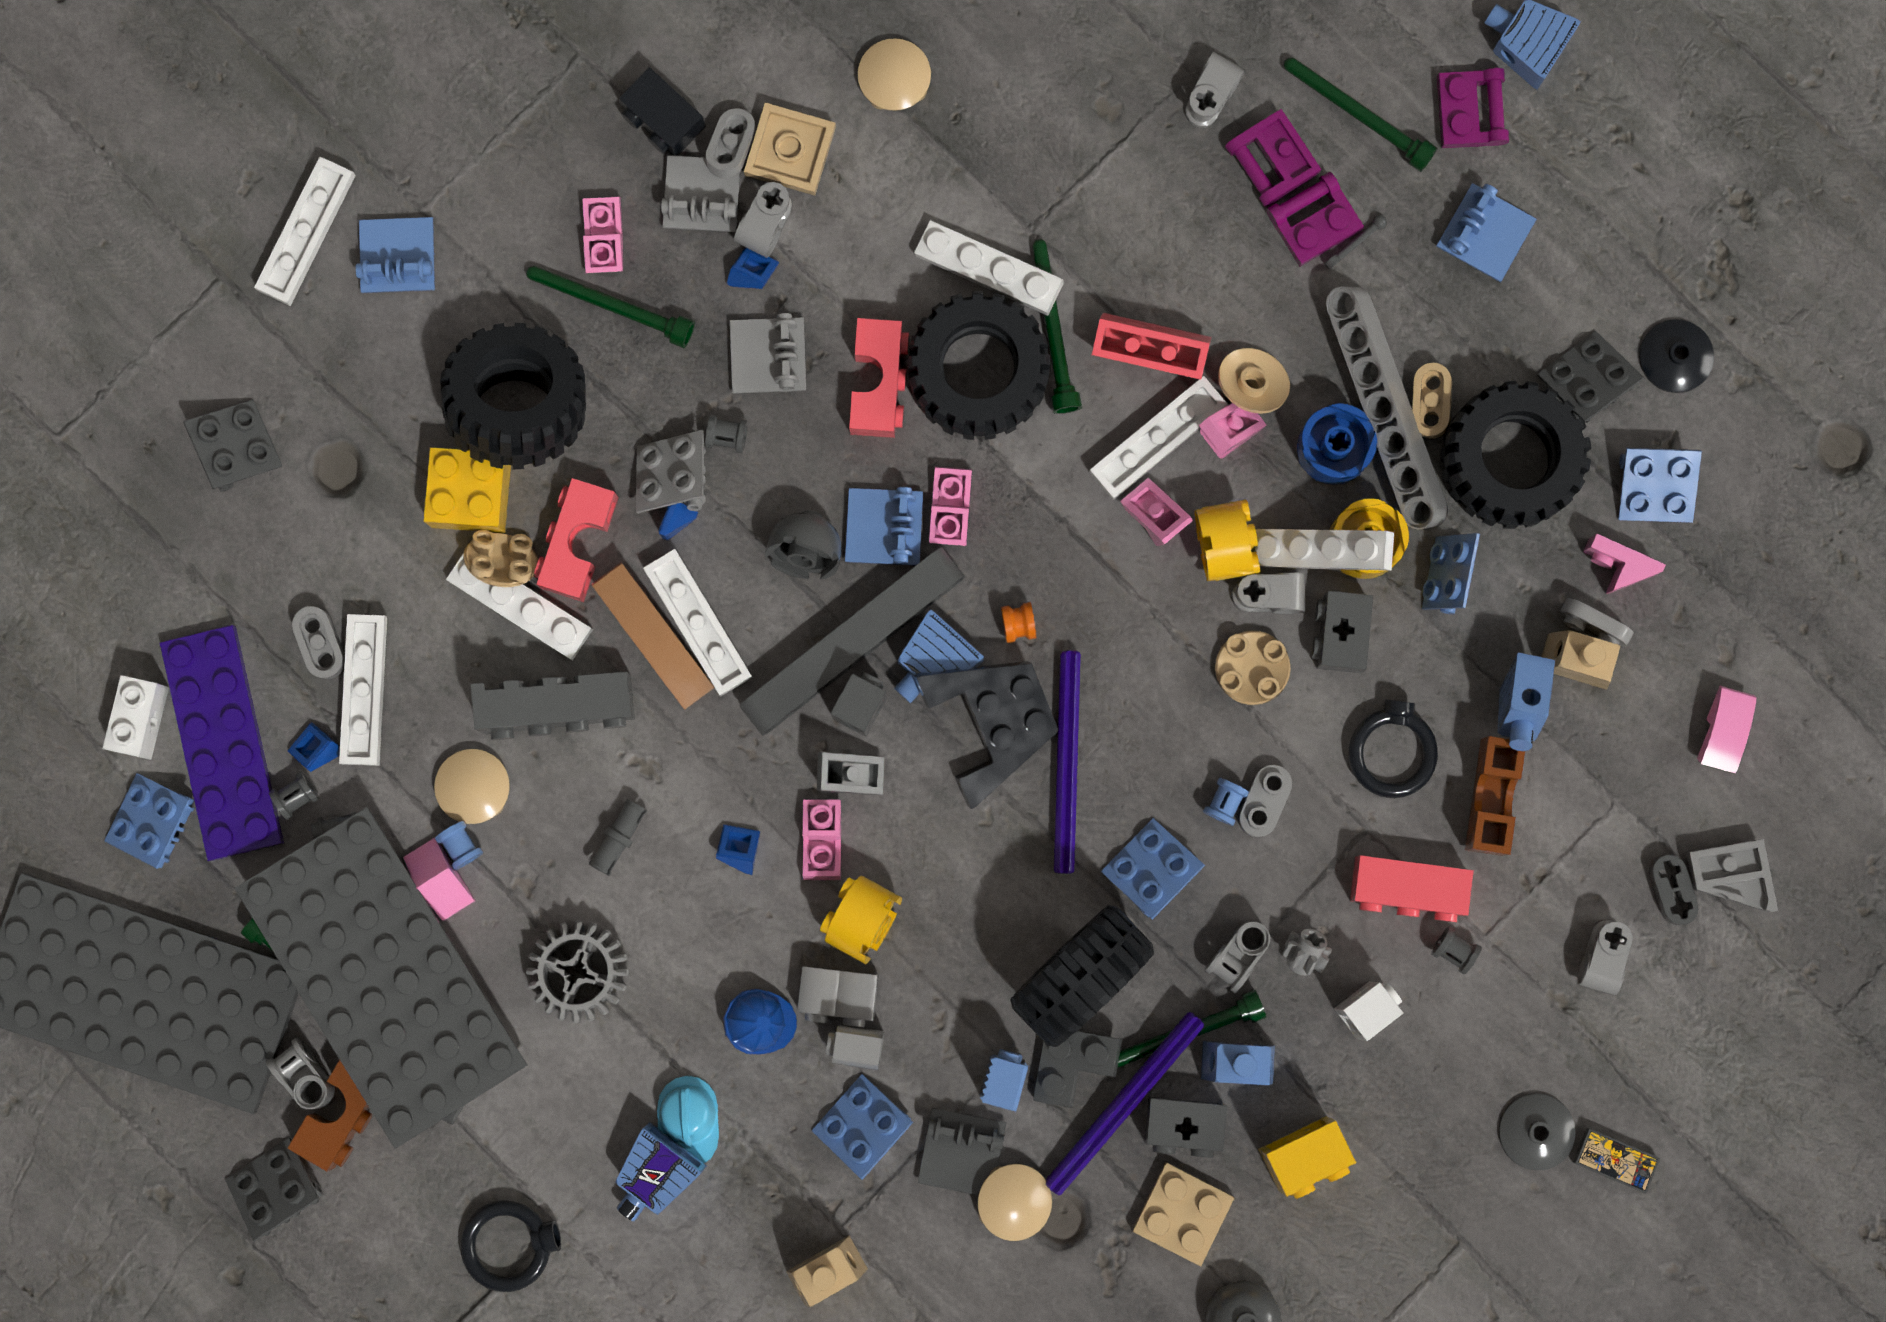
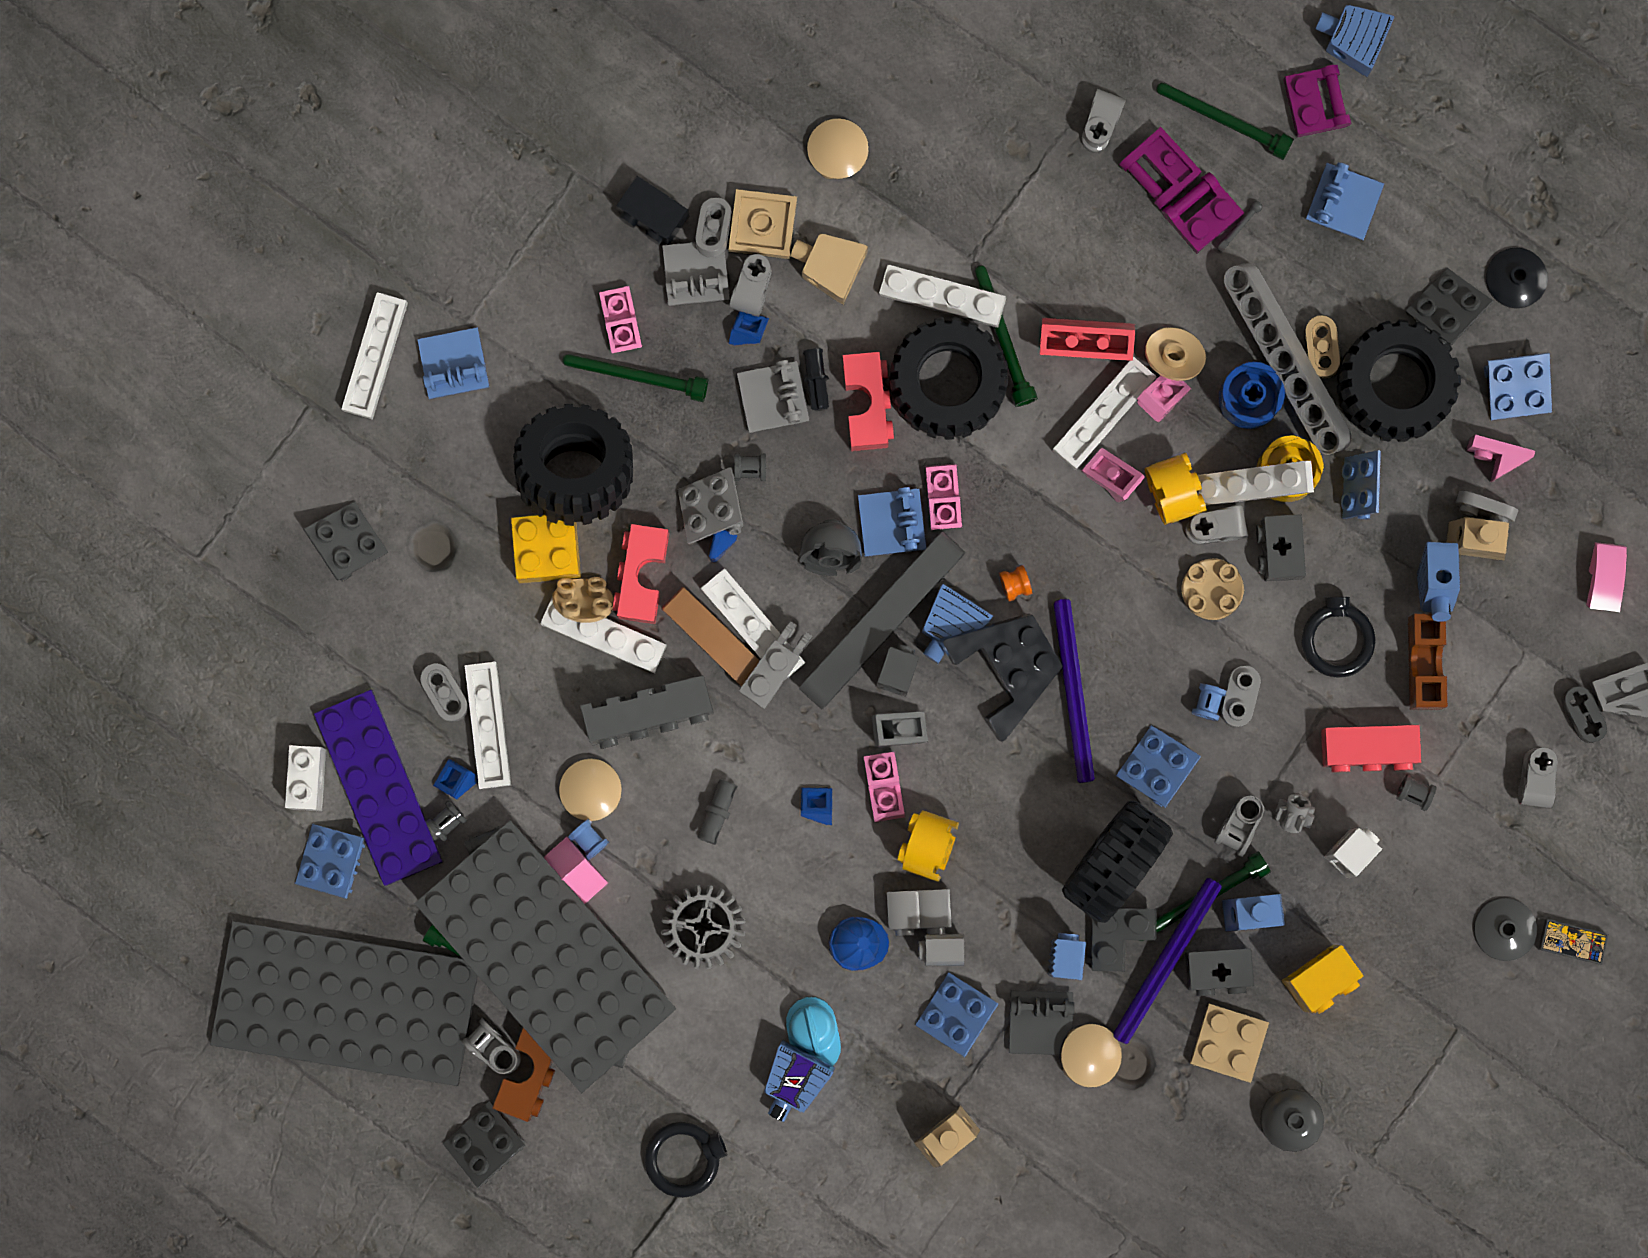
camera: 10 degrees left, 0 degrees up
(713, 676) = (773, 668): none -> light grey hinge
(822, 342) = (816, 379): none -> black axle
(863, 209) = (831, 264): none -> tan torso

